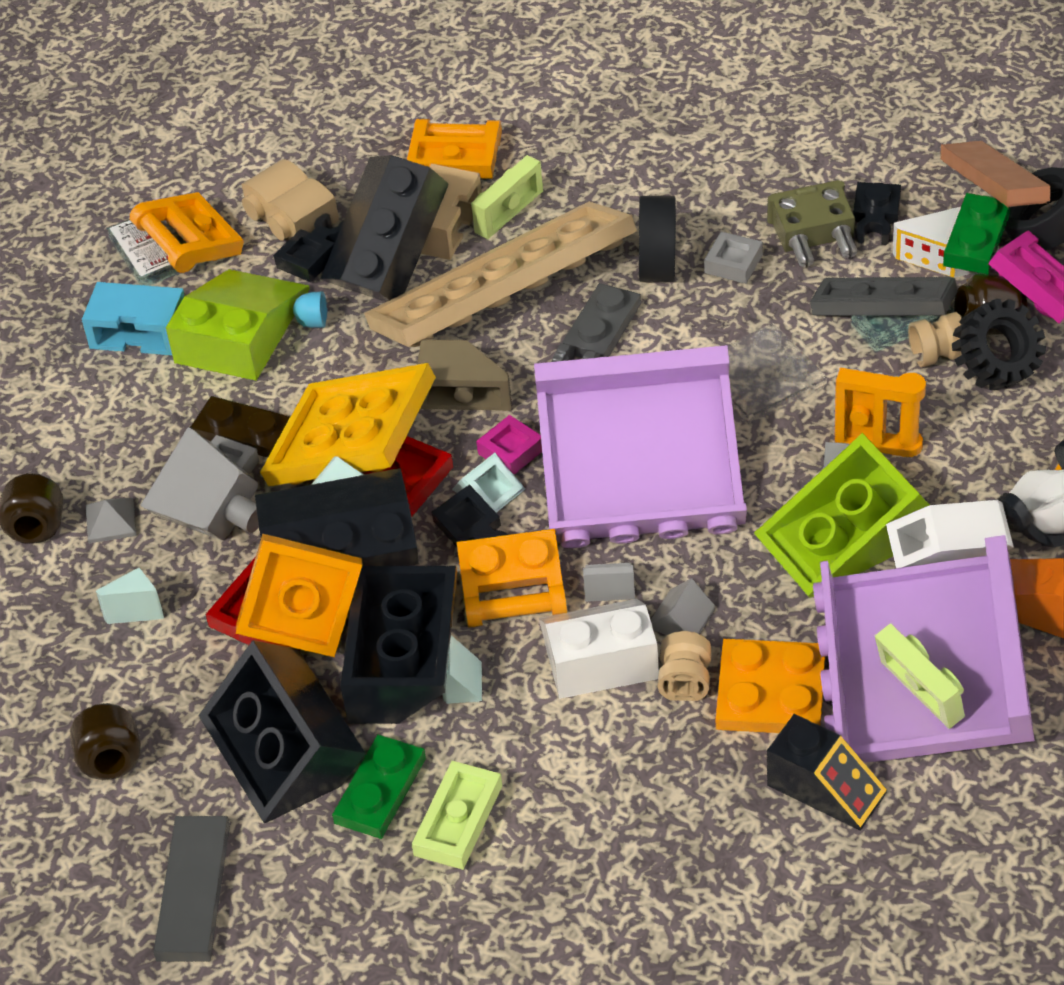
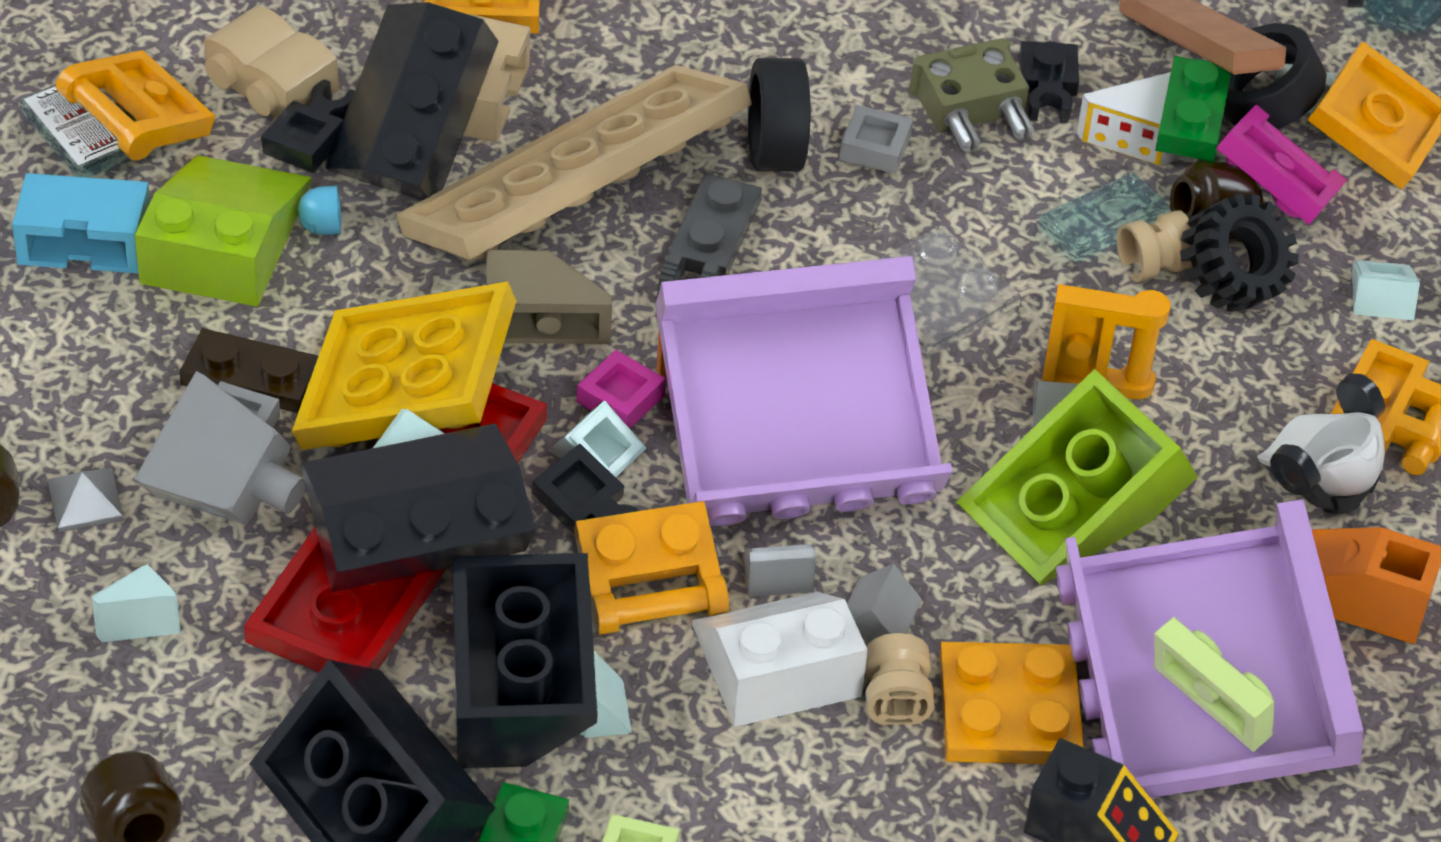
camera: 15 degrees left, 0 degrees up
(298, 595) = (382, 597): light orange plate -> none
(507, 197) = (565, 58): yellowish green plate -> none
(884, 296) = (1081, 190): dark grey tile -> none
(947, 532) = (1217, 498): white slope -> none

